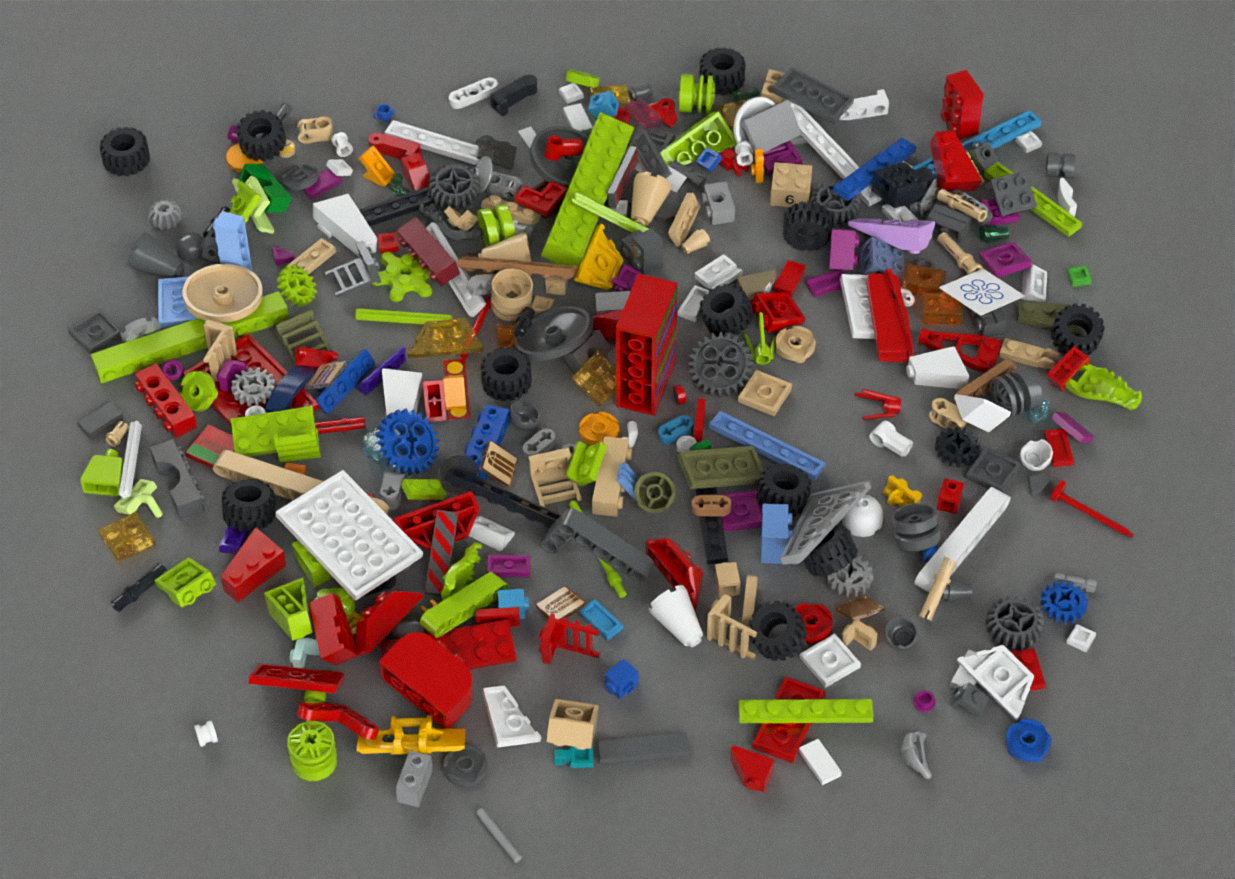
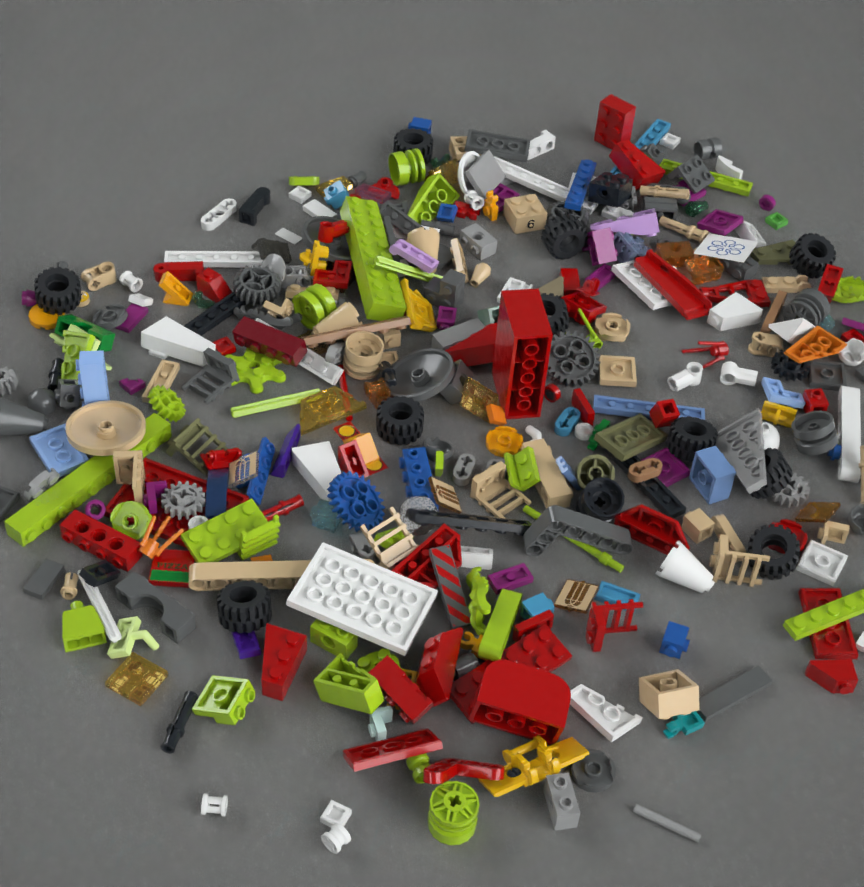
camera: 30 degrees left, 5 degrees down
(125, 667) = (207, 808): none -> white bush
(145, 431) = (99, 573): none -> black plate
(201, 422) = (149, 546): none -> orange plant
(220, 716) = (335, 813): none -> white tile
(384, 112) = (151, 248): blue plate -> none
(412, 502) = (397, 551): none -> tan plate
(511, 433) = (439, 461): none -> lime tile
(528, 171) = (317, 252): none -> yellow hips
(605, 399) = (496, 415): none -> orange tile
(625, 202) = (414, 255): none -> lavender plate
(630, 514) = (603, 493): none -> black wheel
(749, 48) = (420, 123): none -> blue brick
(770, 453) = (664, 413): none -> red brick
(798, 293) = (590, 288): none -> red hinge
(839, 423) = (688, 376): none -> white piece
(917, 475) = (776, 393): none -> light blue plate
(992, 433) = (815, 345): none -> orange wedge
(1081, 251) = (767, 202): none -> magenta tile

